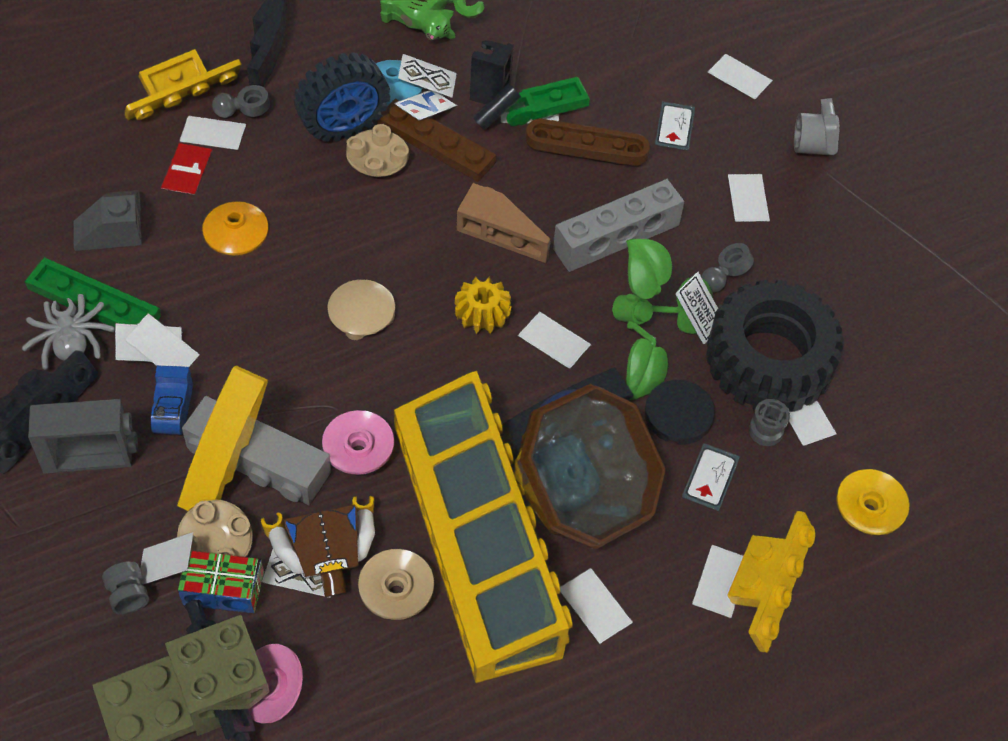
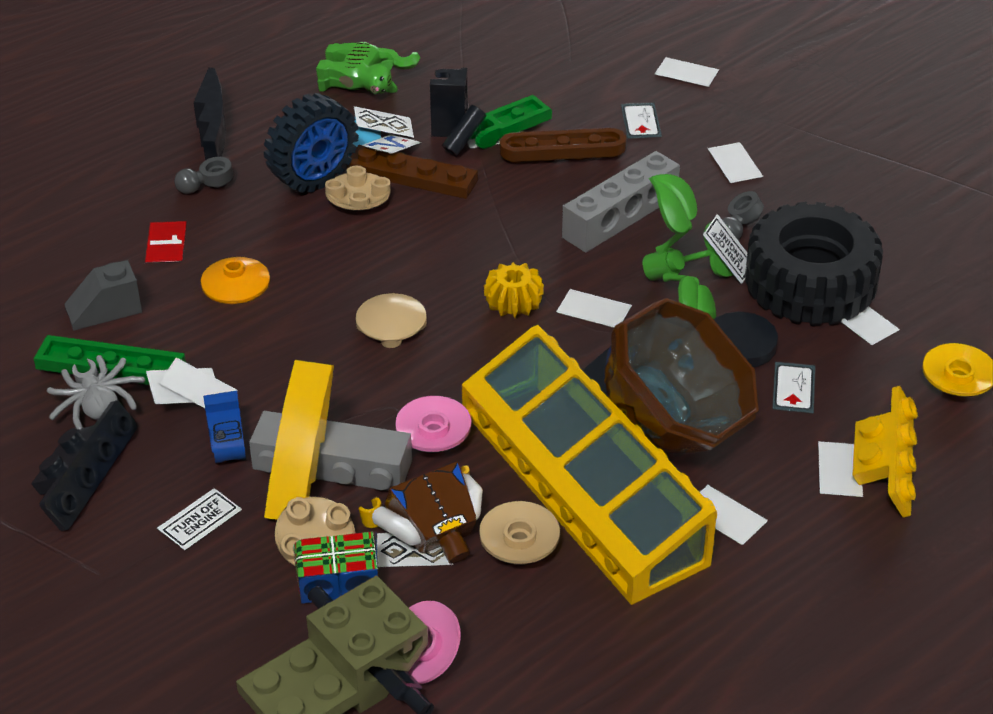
camera: 10 degrees left, 15 degrees down
(82, 435) = (153, 491): dark grey window -> none
(122, 489) = (199, 519): none -> white sticker
(125, 587) = (238, 596): dark grey wheel -> none
(166, 558) = (271, 560): white sticker -> none
(175, 79) = (131, 167): yellow bracket -> none
(212, 132) = (181, 208): white sticker -> none
(498, 221) = (505, 221): medium nougat slope -> none
(769, 422) = (833, 327): dark grey wheel -> none
(817, 131) = (781, 94): light grey piece -> none

